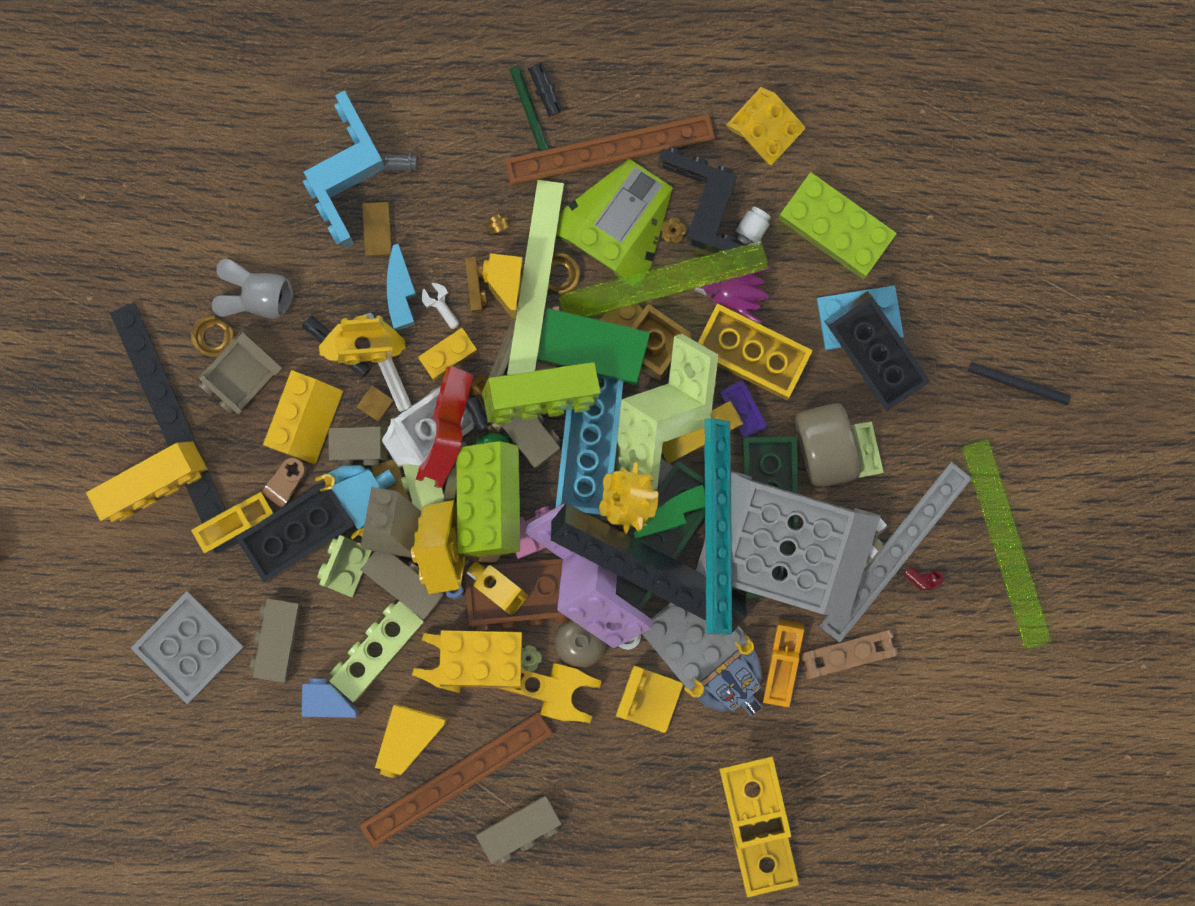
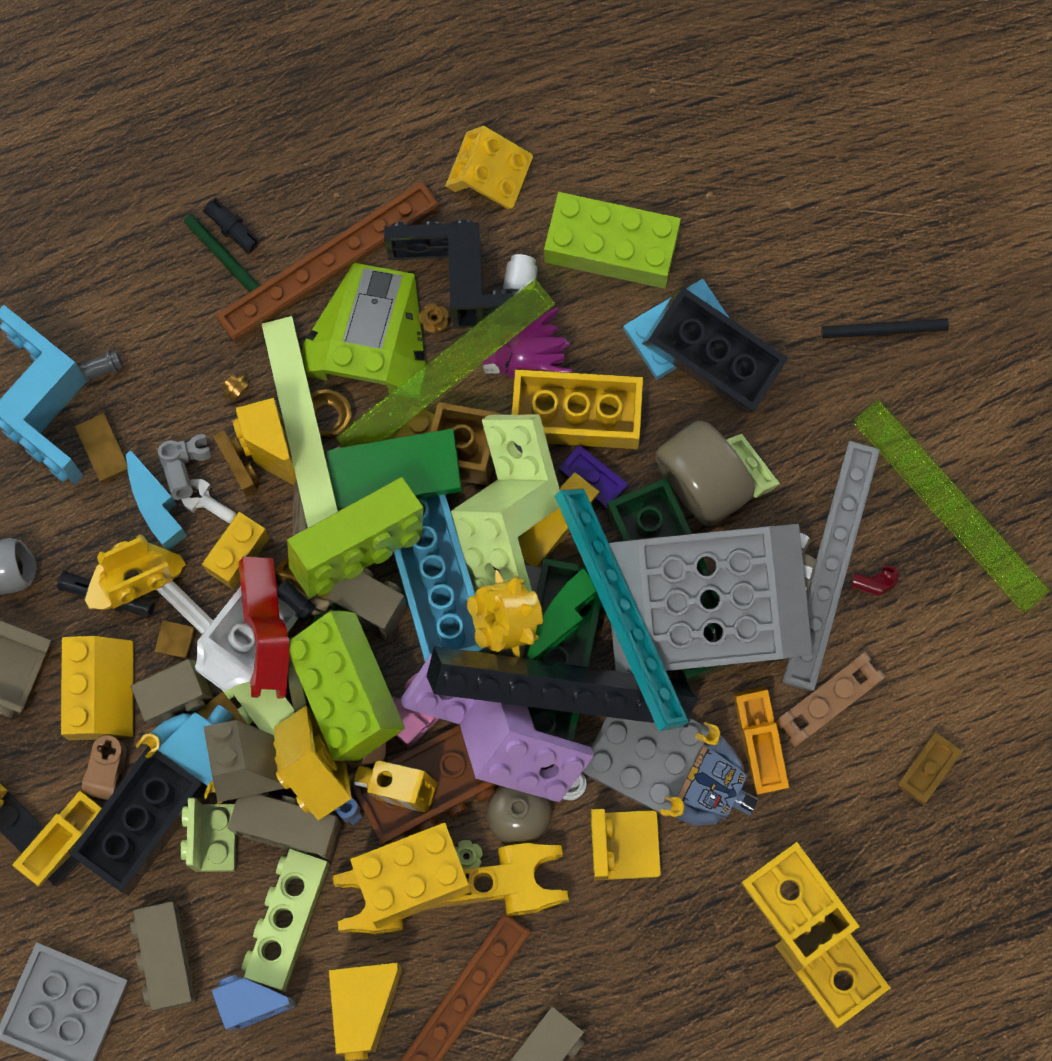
camera: 15 degrees left, 10 degrees down
(428, 260) = (173, 458): none -> light grey bar
(899, 736) = (929, 768): none -> pearl gold plate

